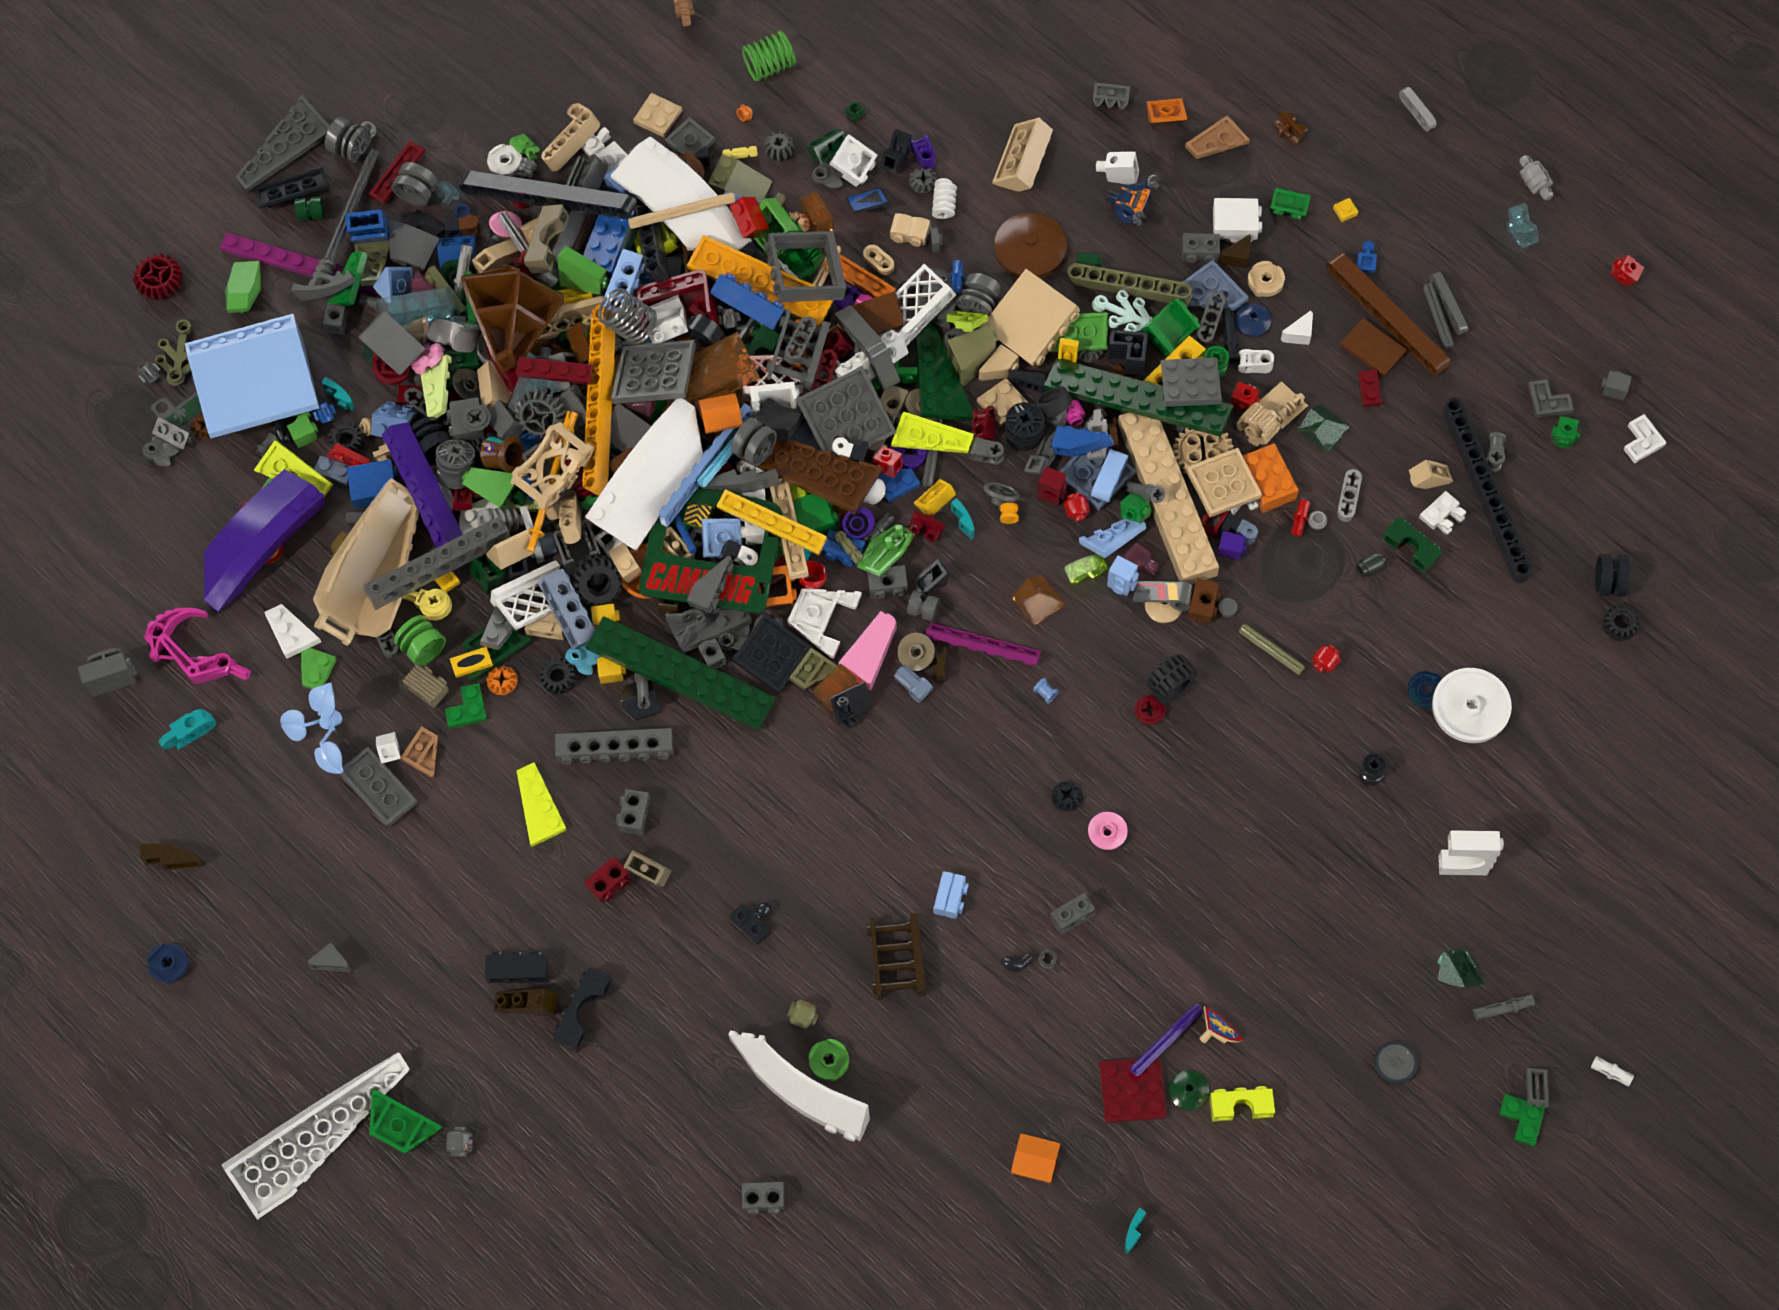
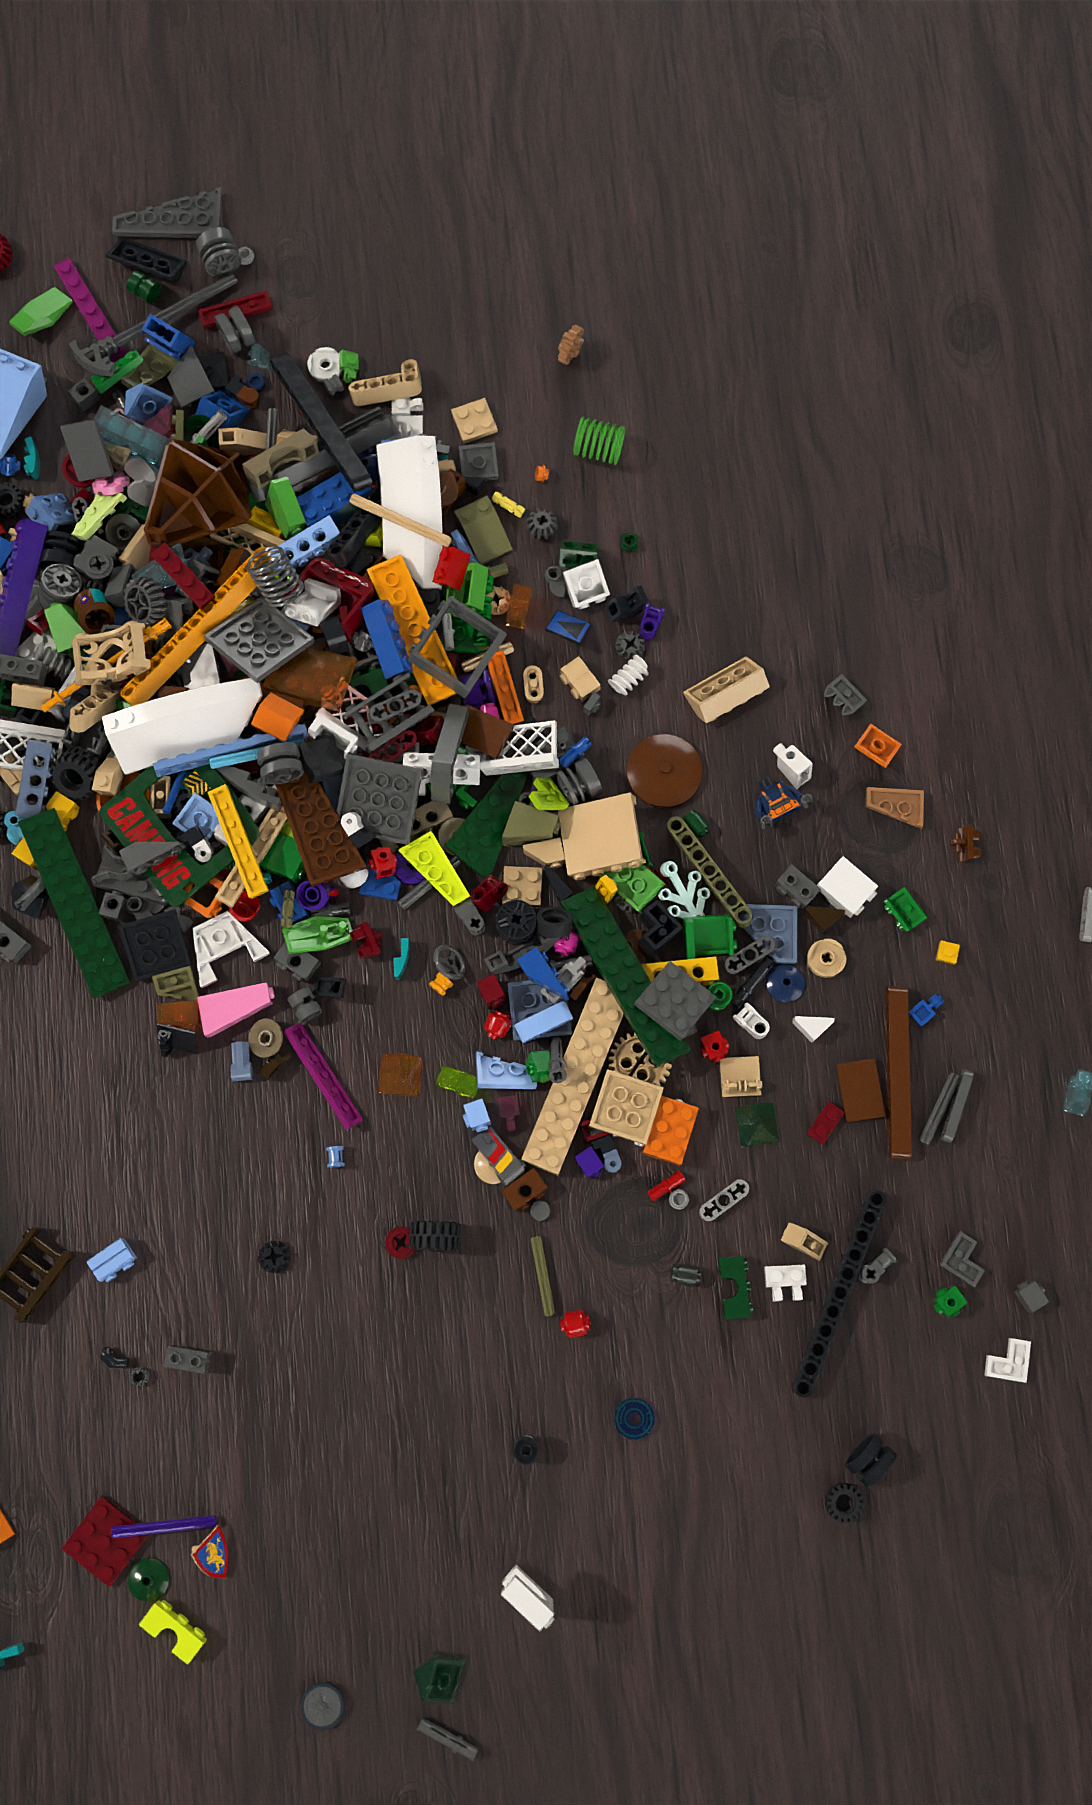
camera: 35 degrees right, 10 degrees up
(497, 230) = (284, 418): bright pink piece -> none
(935, 497) = (398, 921): yellow slope -> none
(1111, 822) = (267, 1320): bright pink dish -> none
(1258, 424) = (702, 1080): tan brick -> none
(1471, 705) = (654, 1467): white dish -> none

